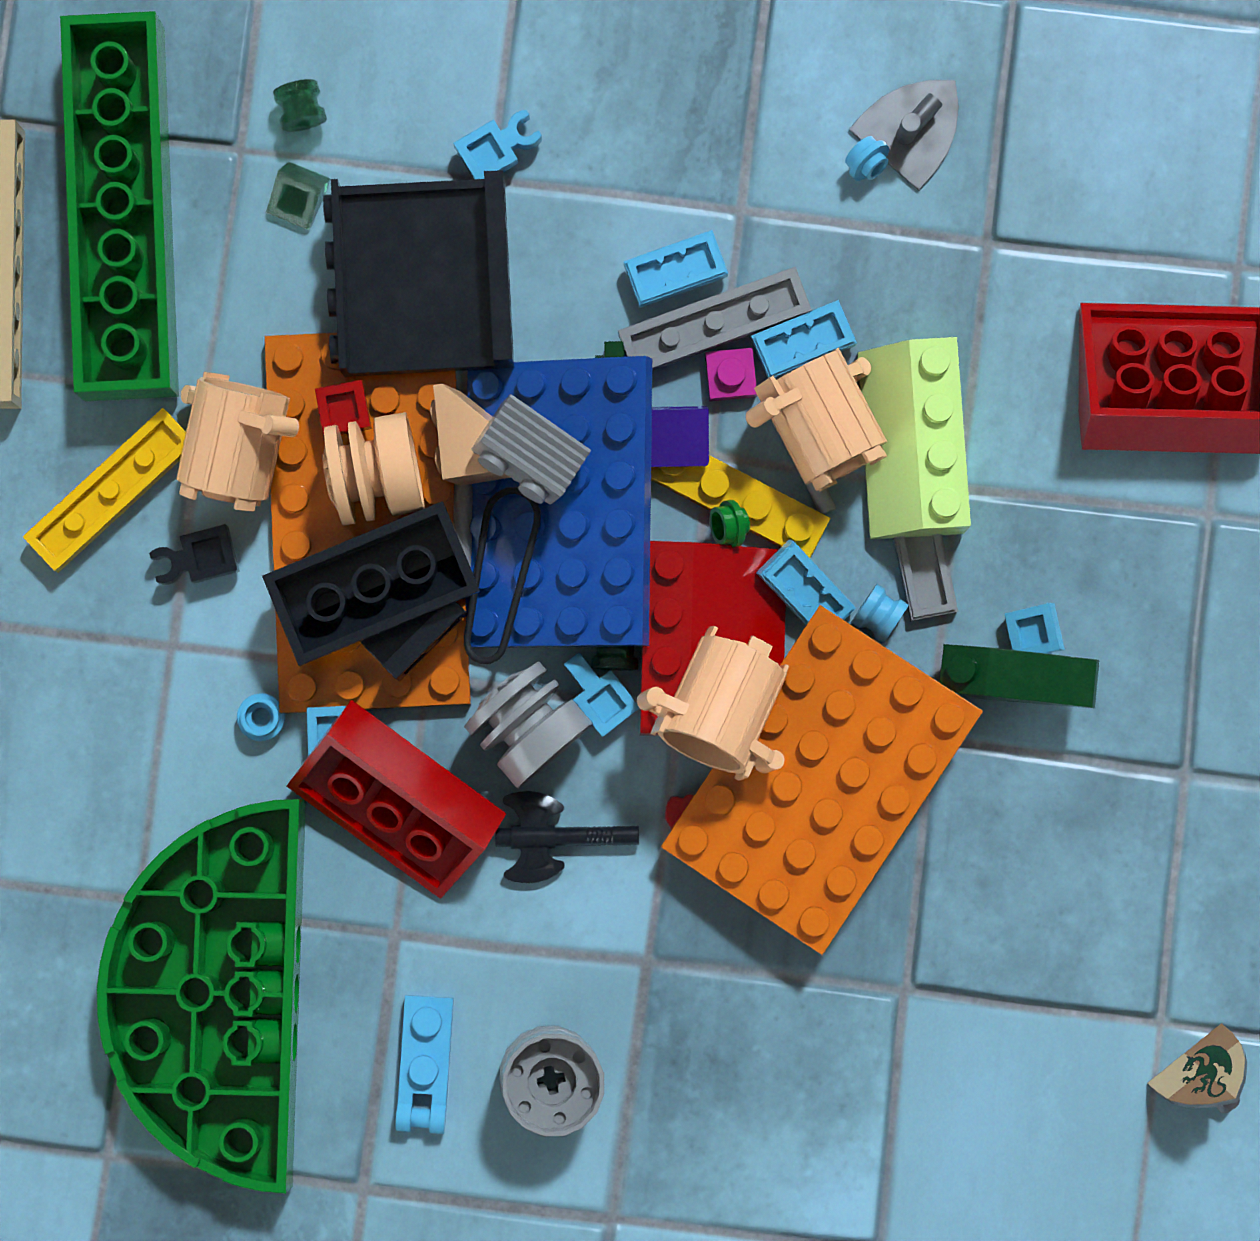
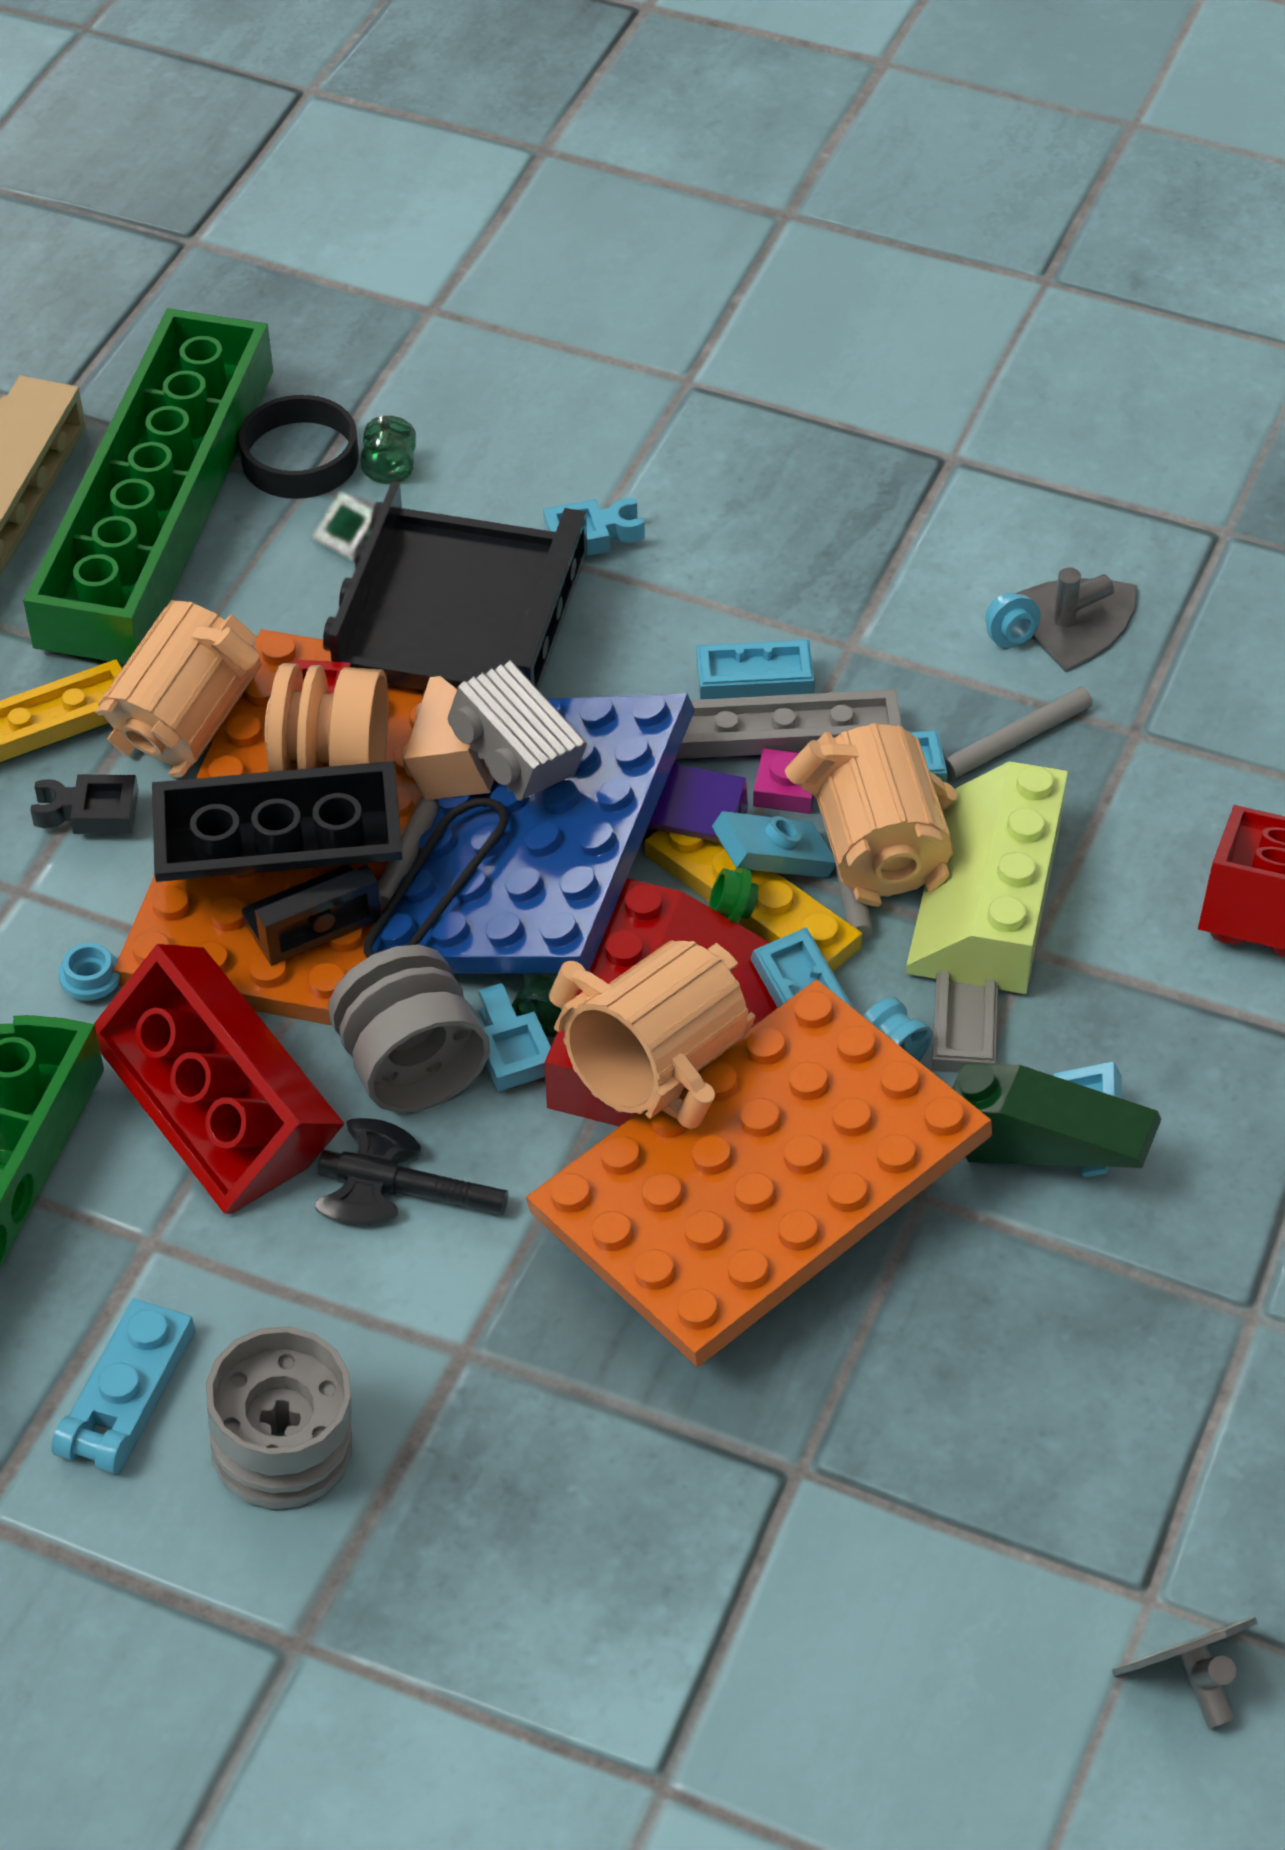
camera: 20 degrees right, 35 degrees down
(202, 71) = (298, 410): none -> black tyre
(743, 460) = (774, 844): none -> medium azure plate
(897, 273) = (1017, 732): none -> light grey bar

